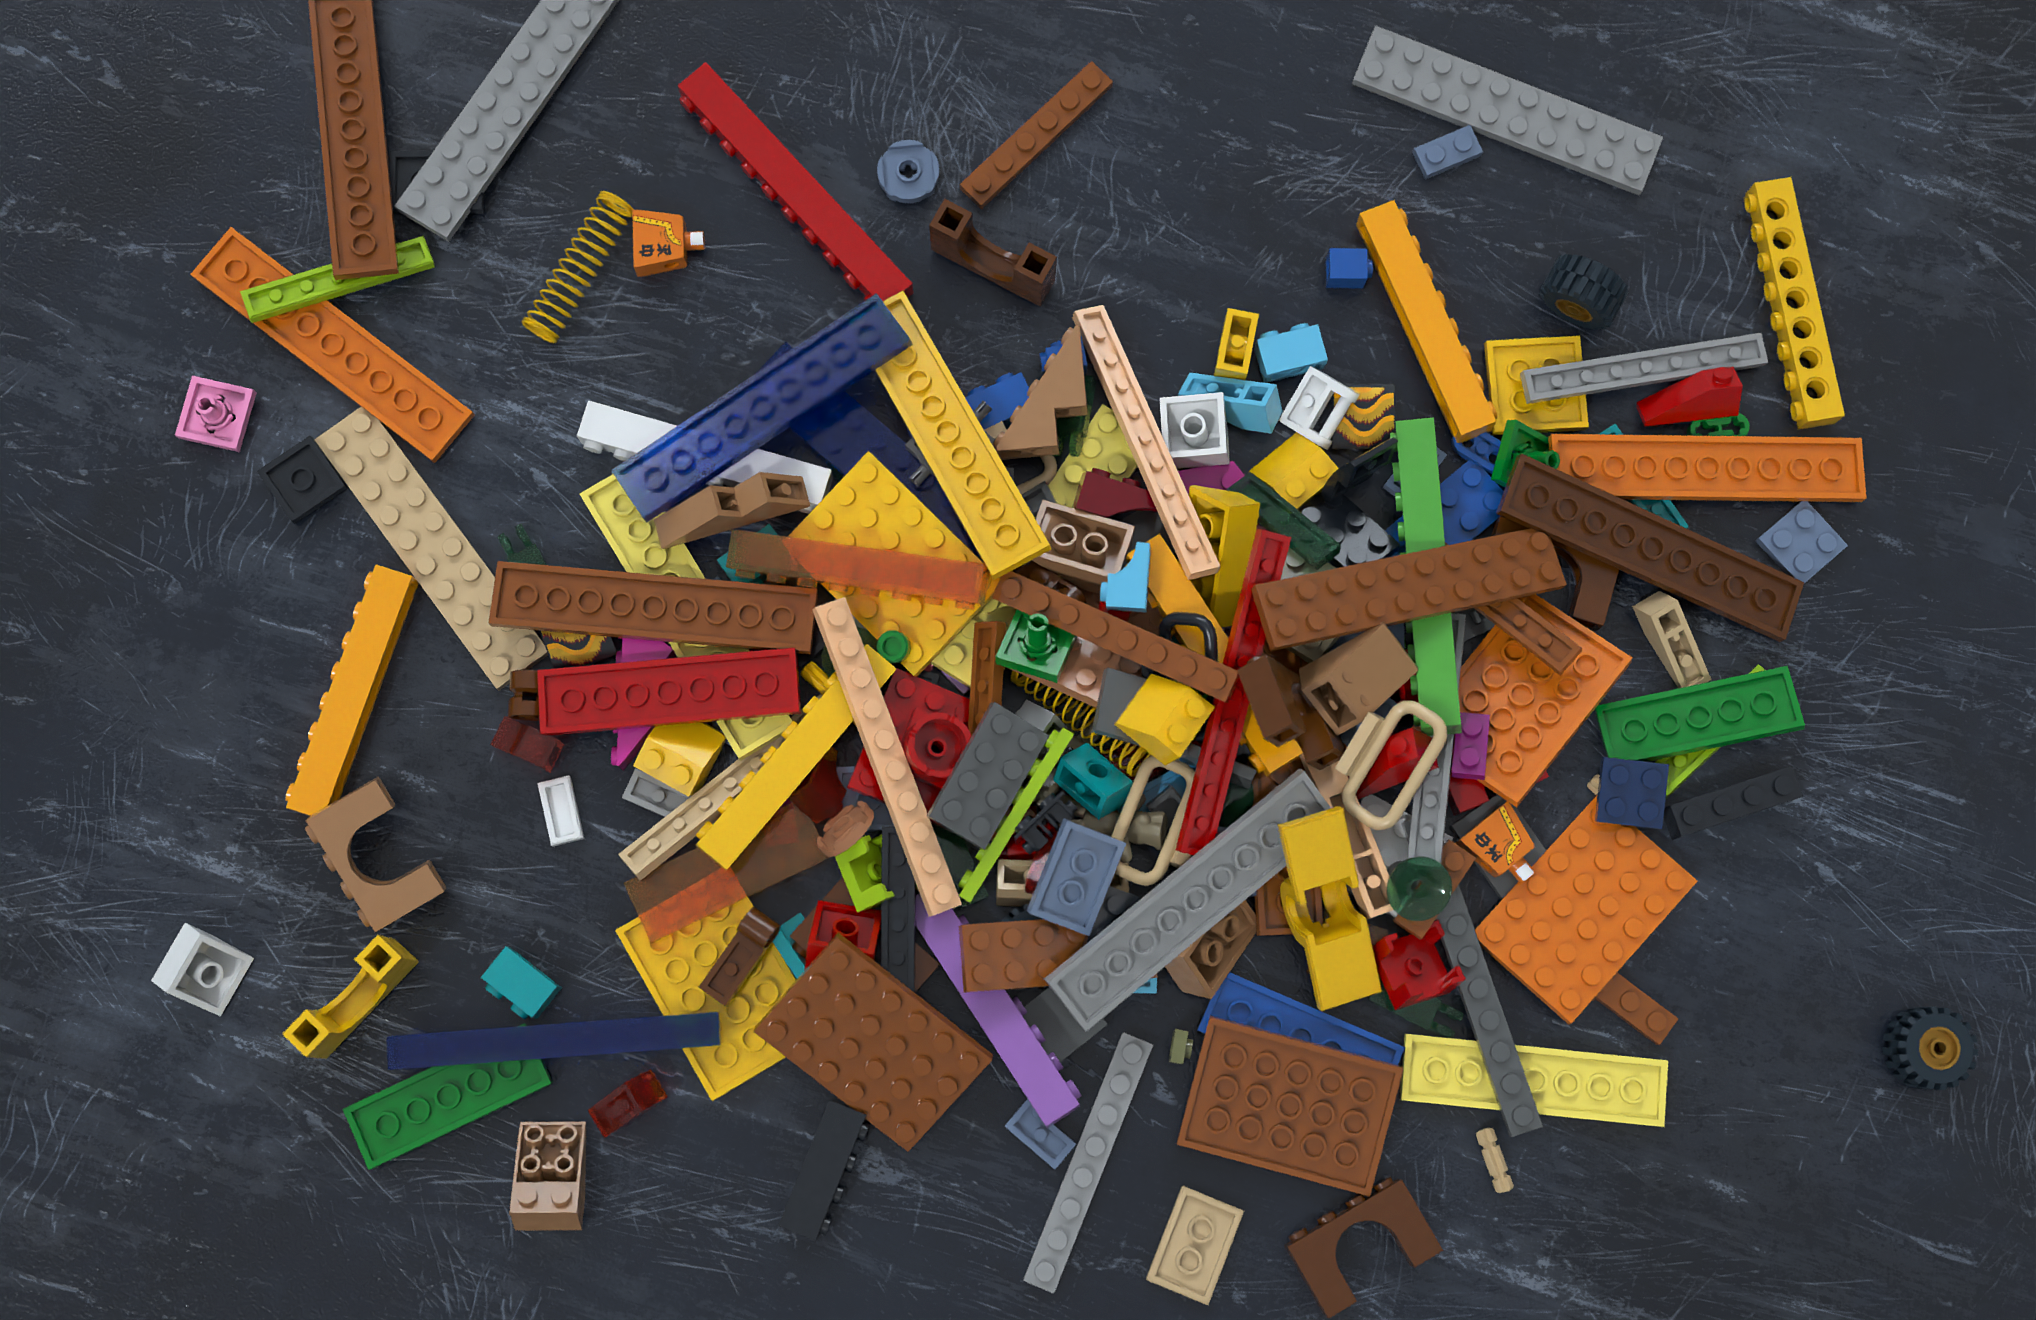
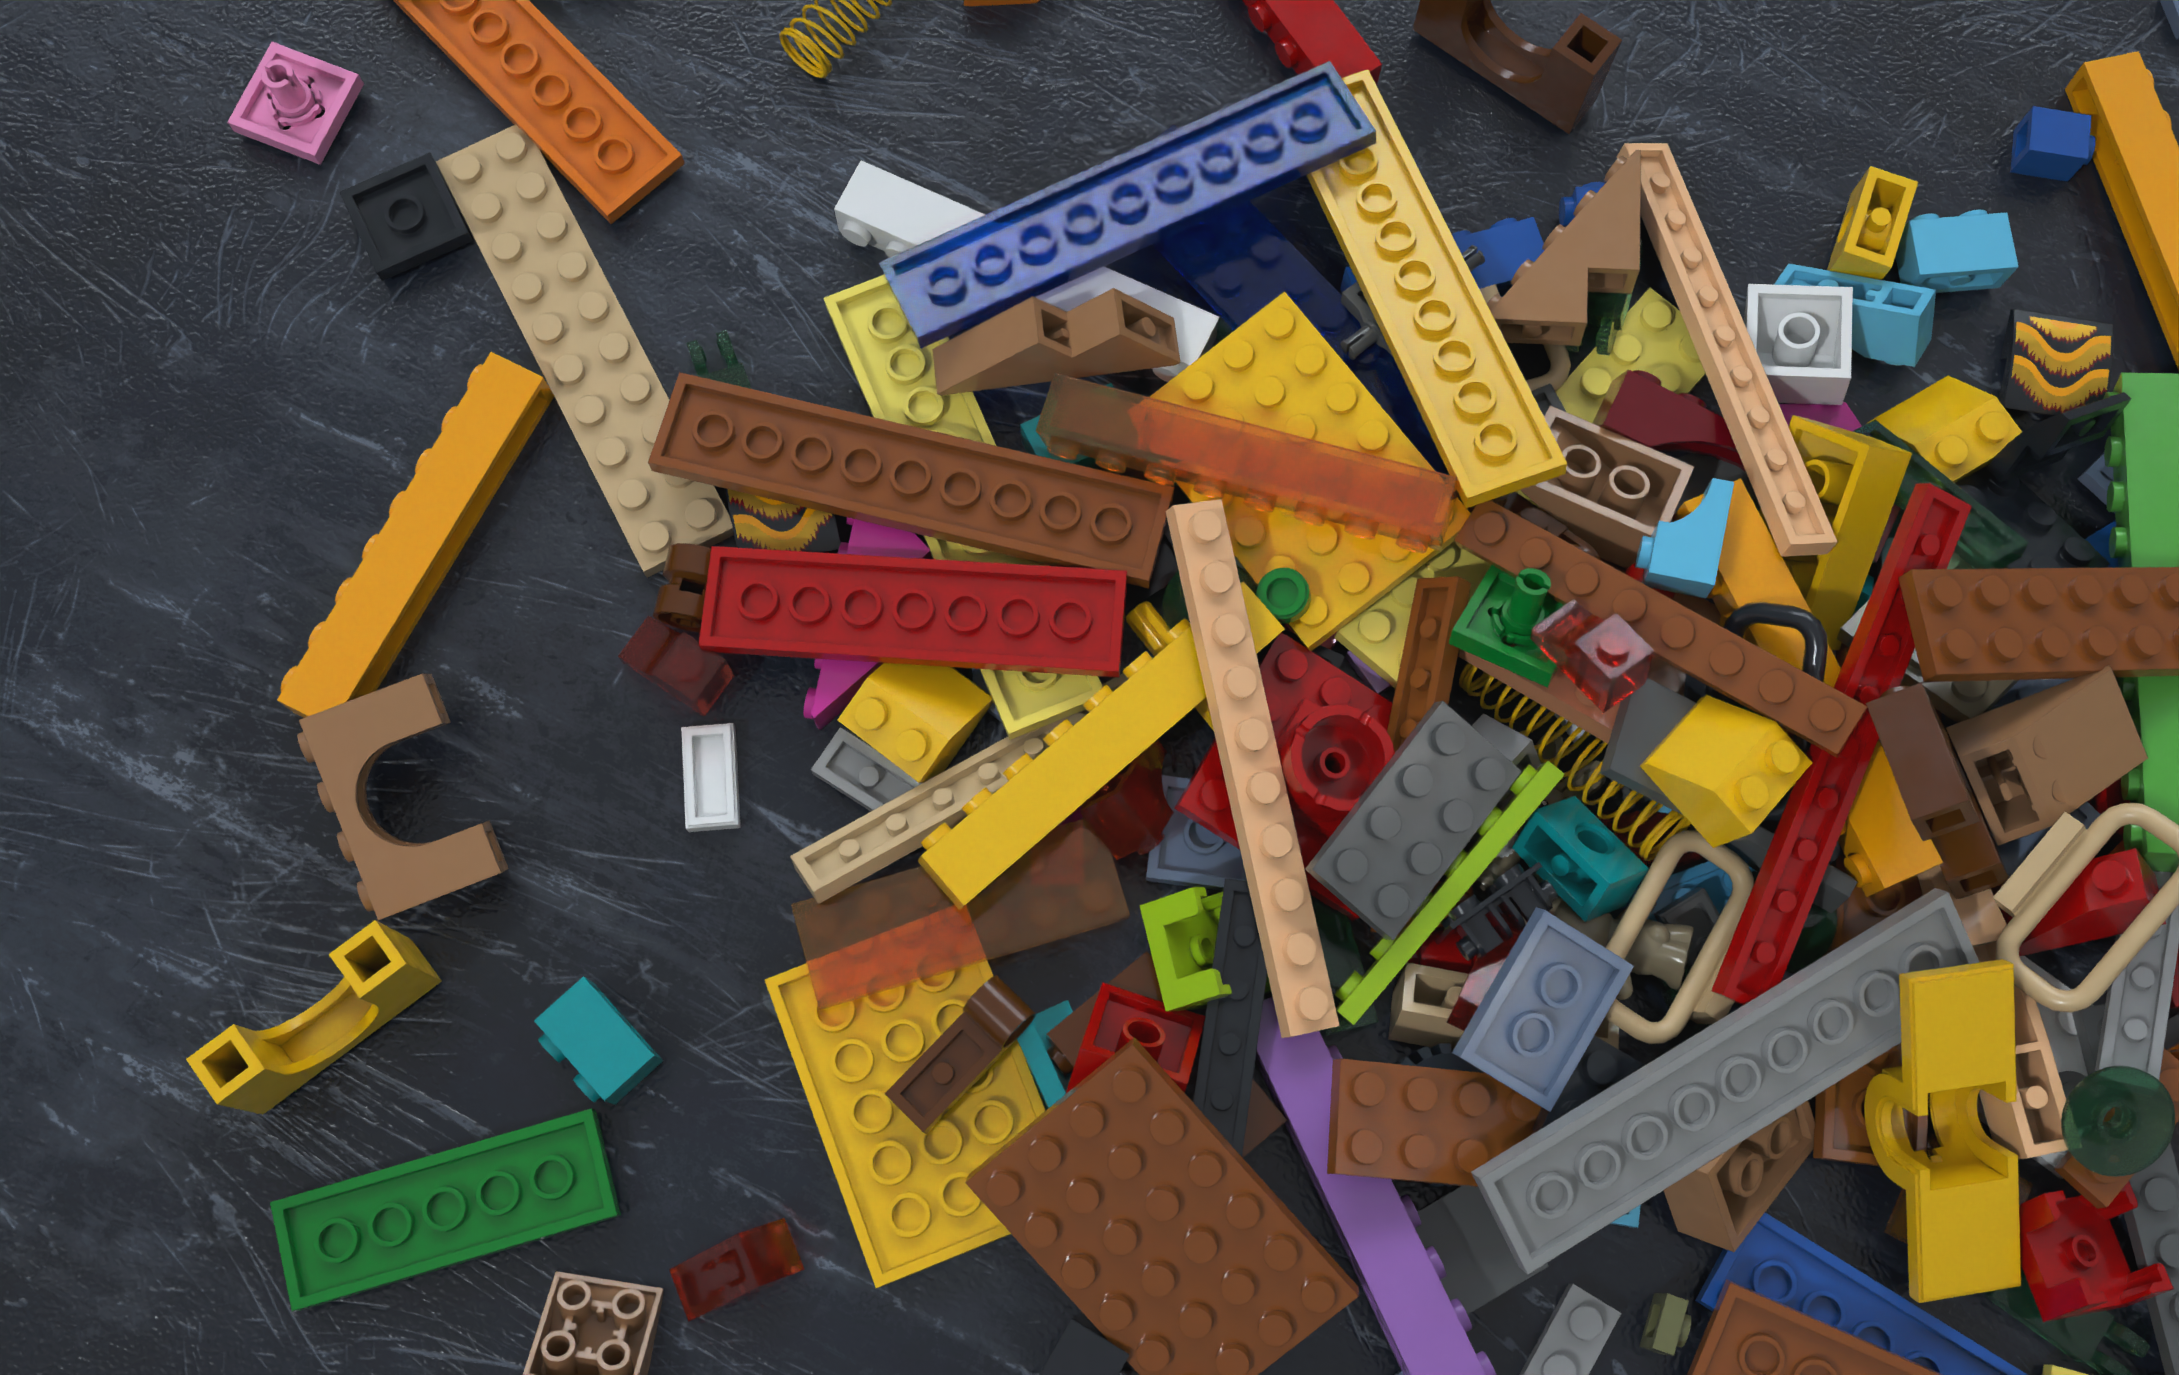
camera: 10 degrees right, 5 degrees down
(202, 969) = (93, 938): white slope -> none
(553, 1041) = (633, 1145): clear blue plate -> none
(845, 829) = (1165, 873): nougat tile -> none
(1078, 660) = (1595, 653): none -> clear red arch
(1311, 401) = (1980, 329): white plate -> none

